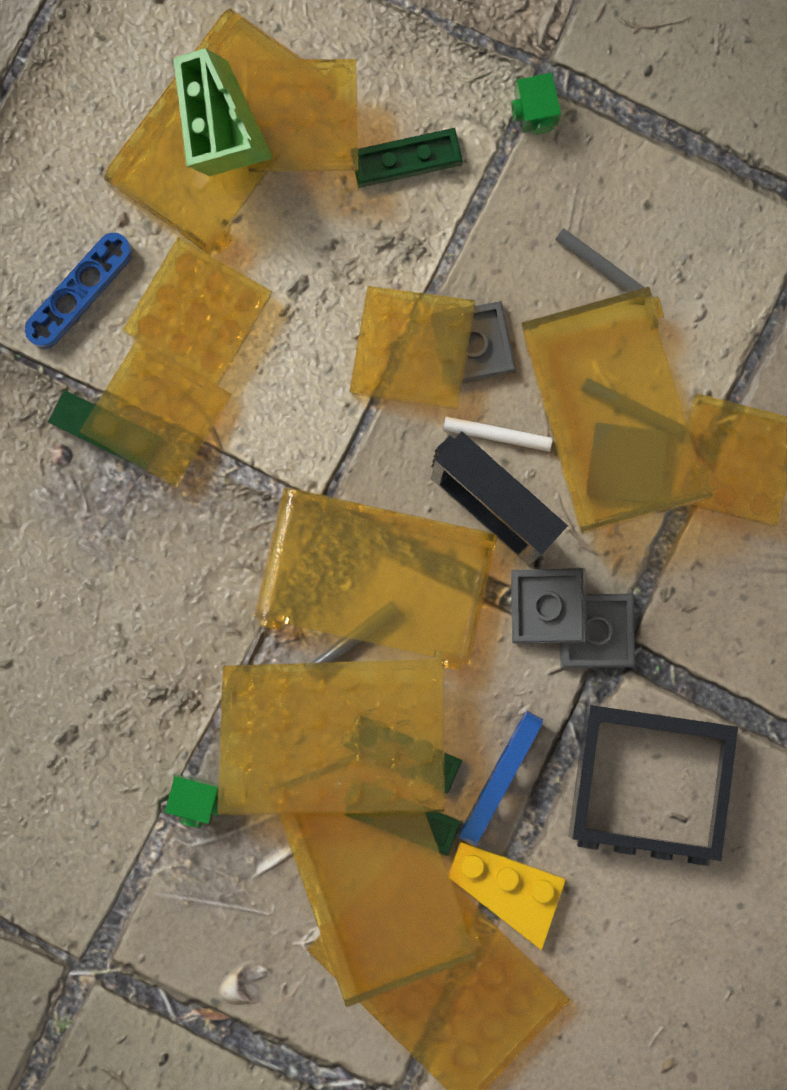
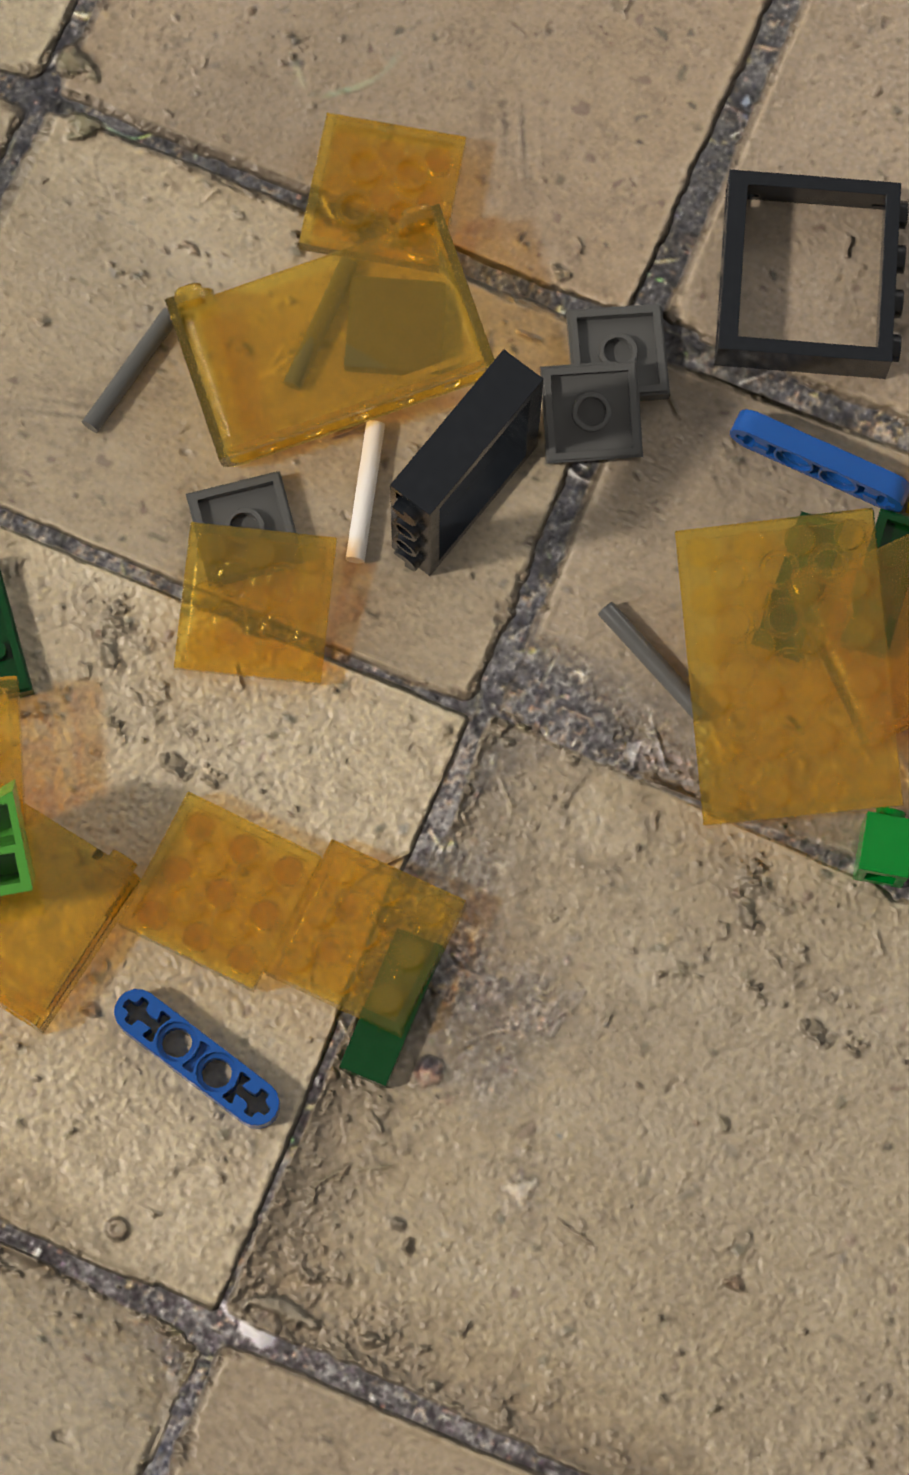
camera: 90 degrees left, 10 degrees down
(375, 576) = (568, 636): clear yellow windscreen -> none

